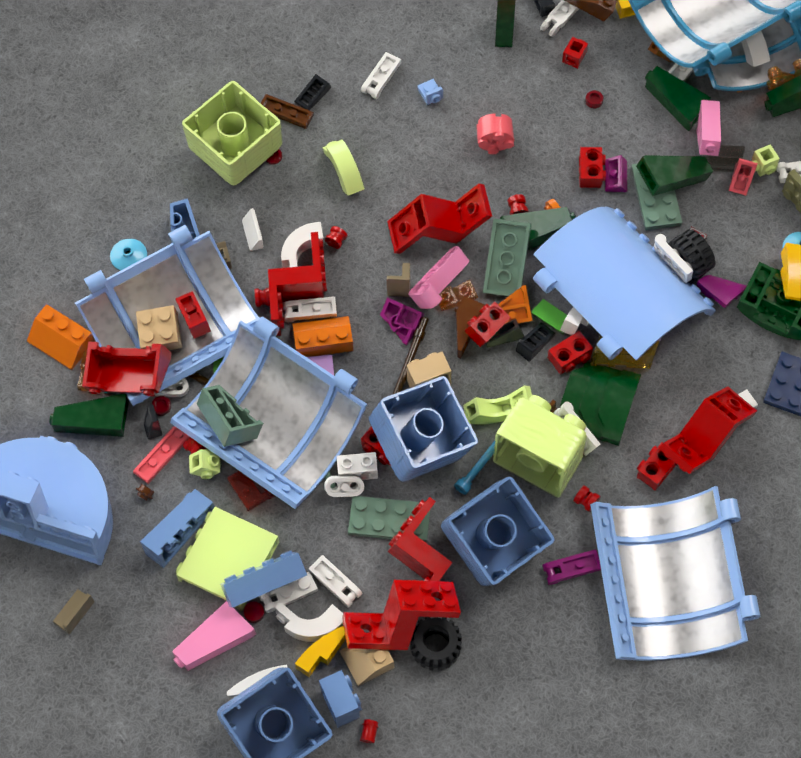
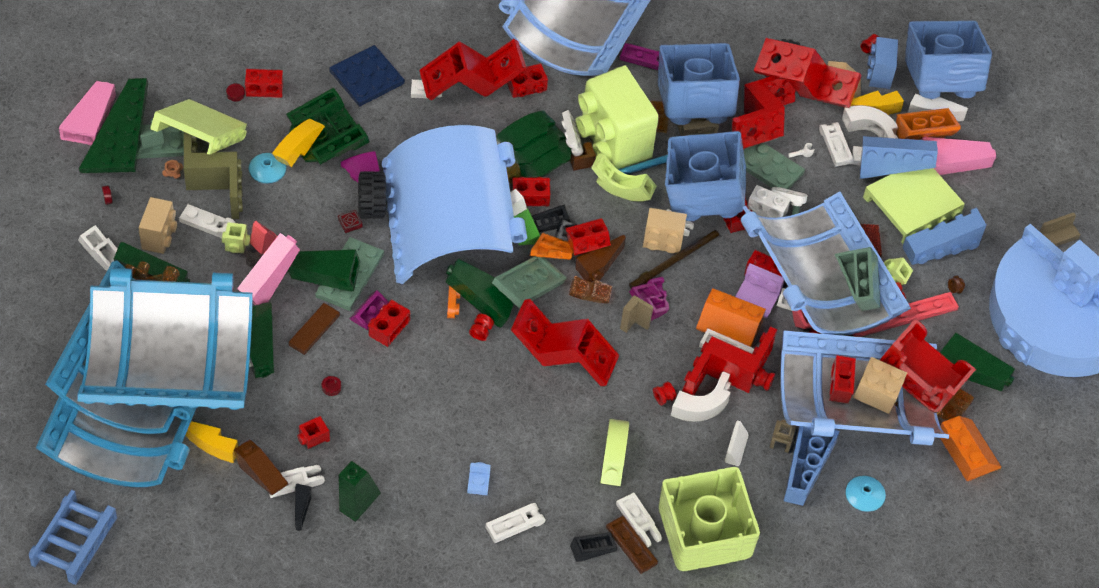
camera: 155 degrees left, 10 degrees down
(151, 423) = (924, 318): black slope -> none
(254, 642) = (928, 123): none -> orange slope
(296, 131) = (638, 518): none -> white hinge
(362, 554) = (805, 151): none -> white hand
(427, 290) = (597, 302): bright pink beam -> none
(495, 133) = (454, 393): coral brick -> none
(644, 133) = (314, 328): none -> reddish brown tile
(672, 258) = (392, 196): white plate -> none

